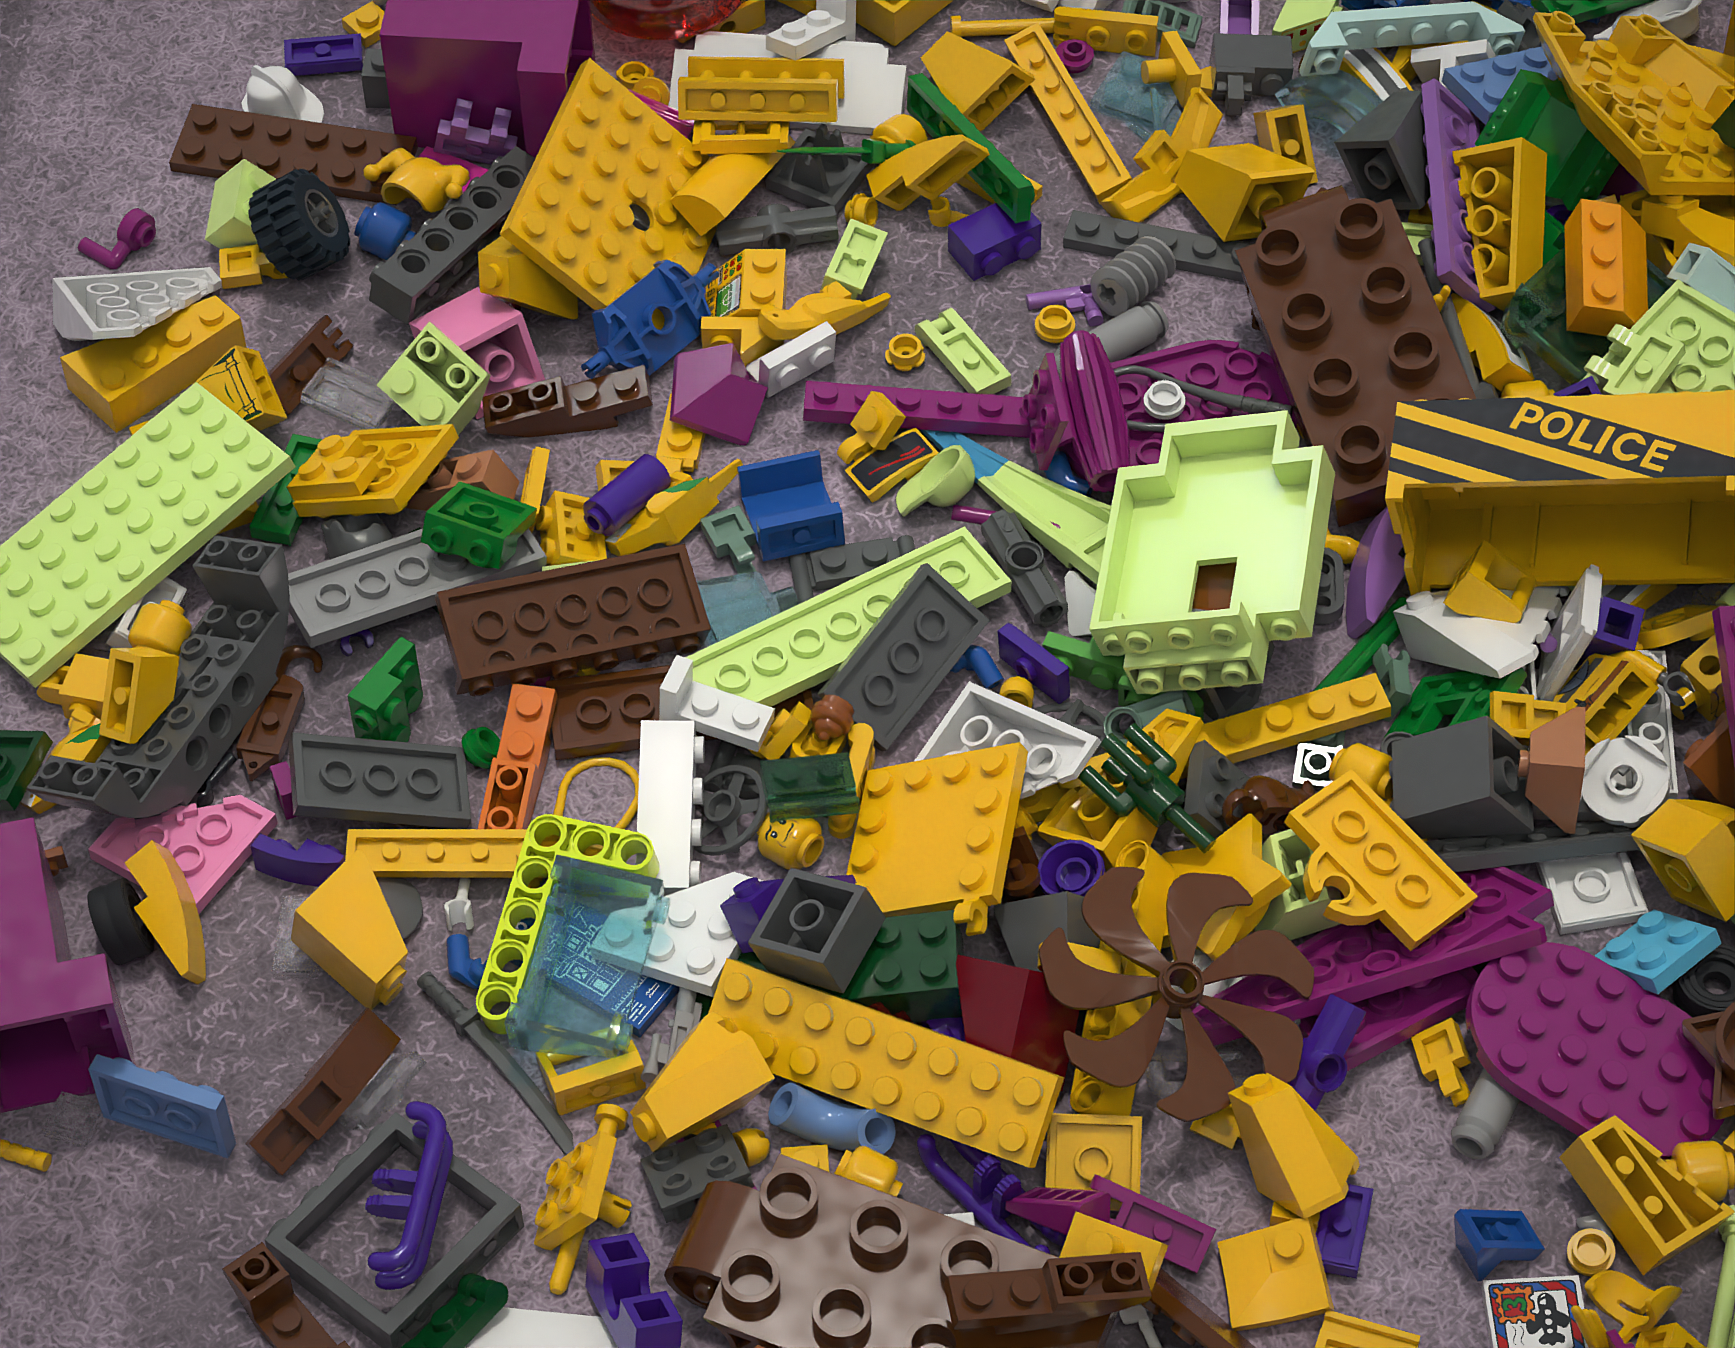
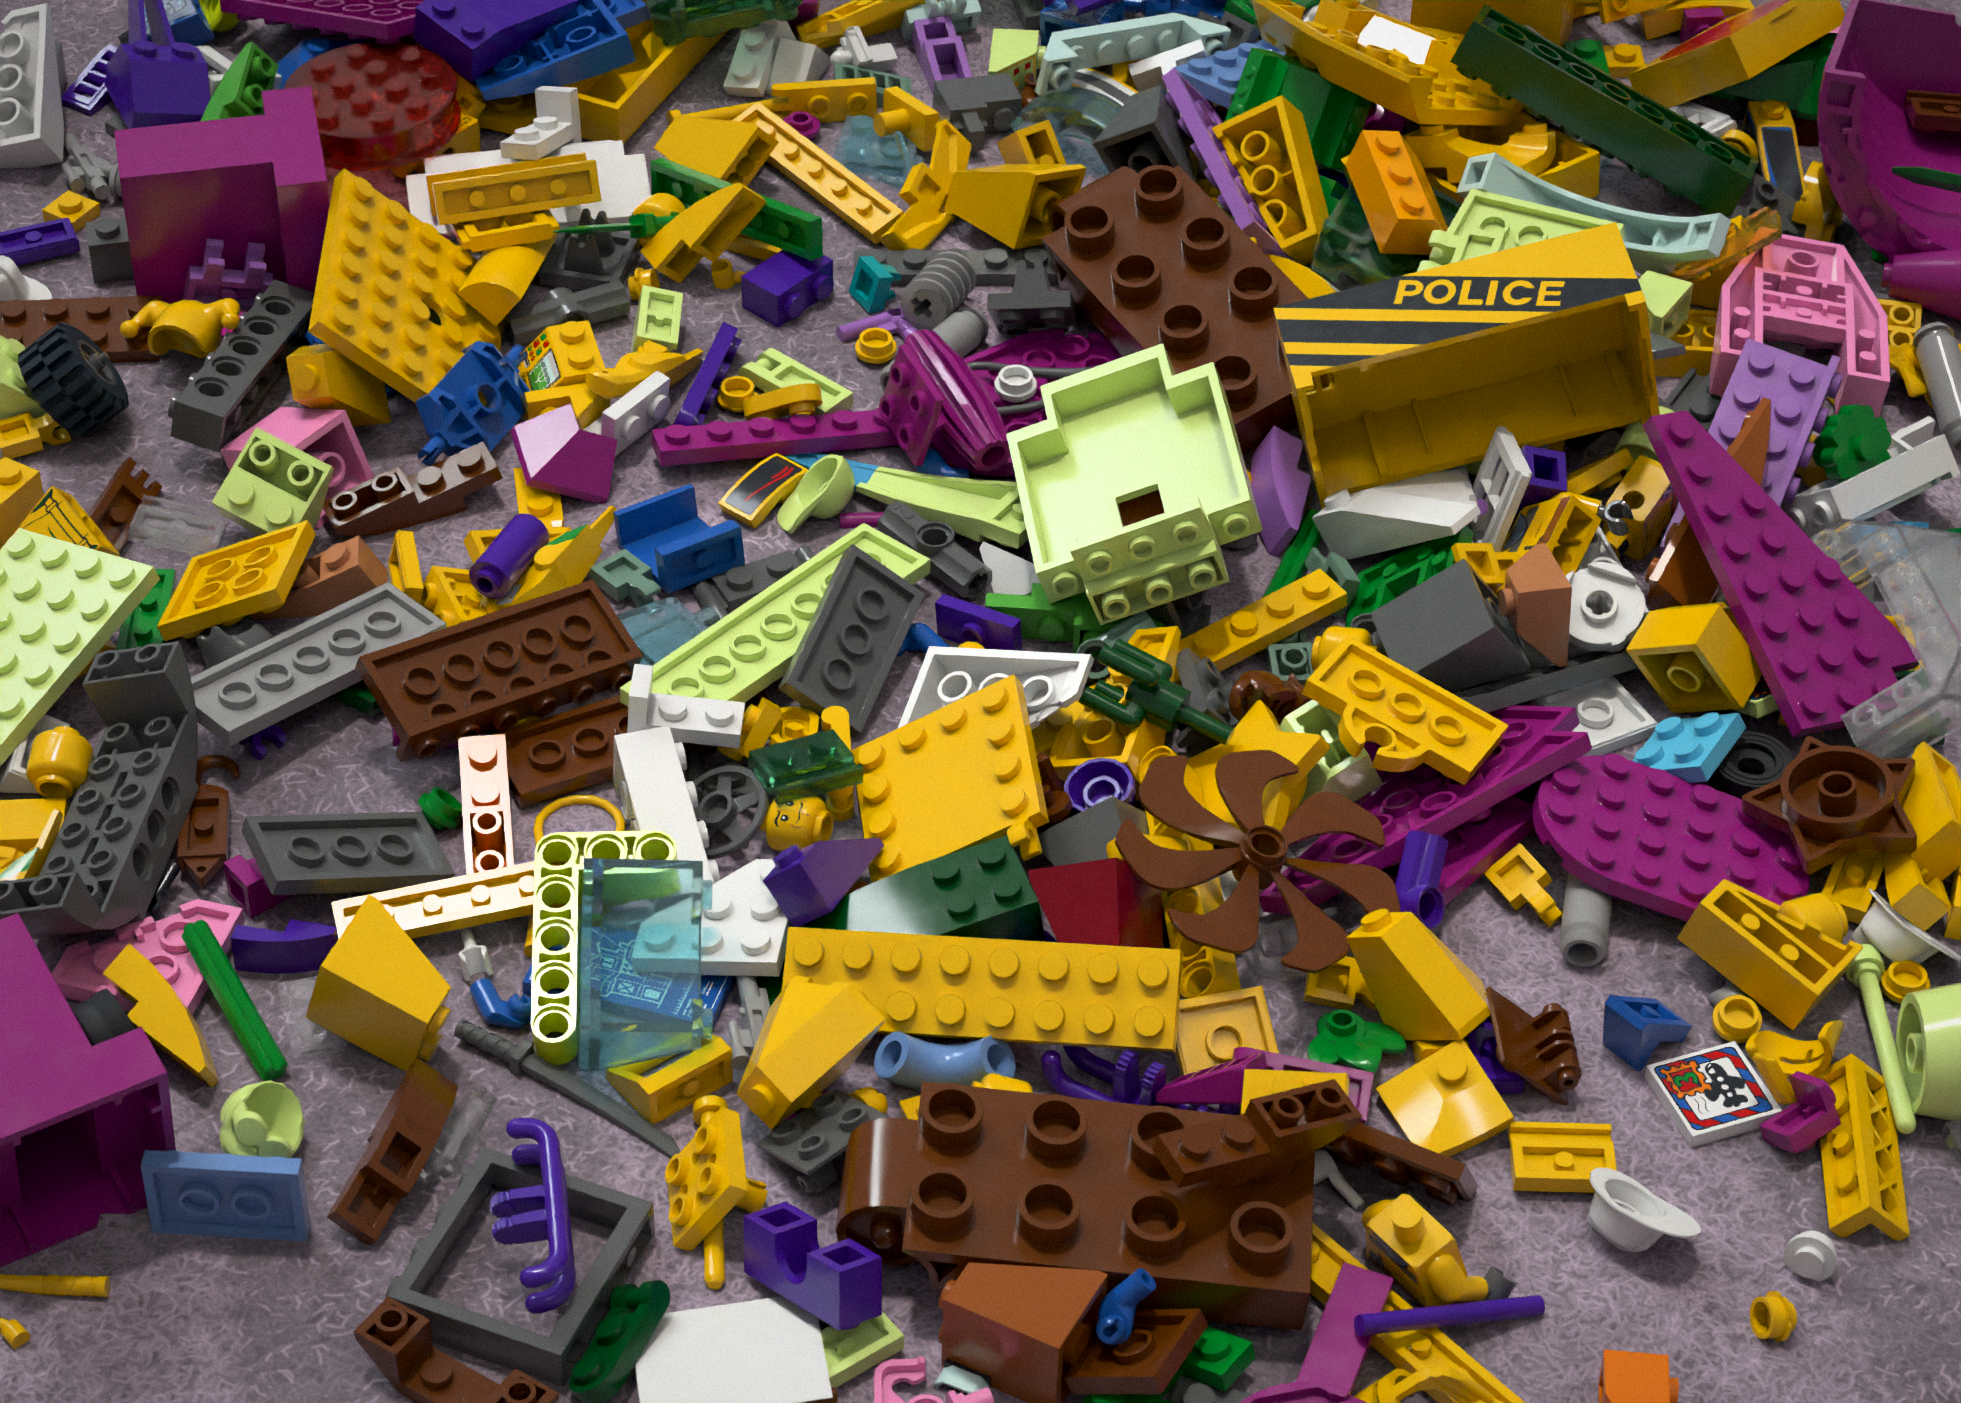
camera: 20 degrees left, 10 degrees down
(136, 691) = (61, 811): yellow slope -> none
(217, 1043) = (262, 1121): none -> yellowish green hair
(237, 907) = (234, 1000): none -> green axle
(334, 470) = (194, 585): yellow plate -> none
(383, 229) = (158, 378): blue head -> none
(387, 695) = (327, 771): green plate -> none
(476, 525) = (368, 603): green plate -> none
(817, 930) = (878, 875): dark grey brick -> none
(831, 717) = (802, 703): dark orange plate -> none
(875, 427) = (739, 453): yellow plate -> none
(888, 323) = (711, 372): none -> dark purple plate
(951, 377) = (784, 402): none -> yellow plate
(1077, 252) = (872, 283): none -> teal tile
(1213, 309) = (1032, 304): none -> dark grey plate
(1215, 1192) = (1352, 1041): none -> green plate
(1377, 1236) = (1536, 1046): none -> reddish brown hinge
(1476, 585) = (1402, 469): yellow tile -> none

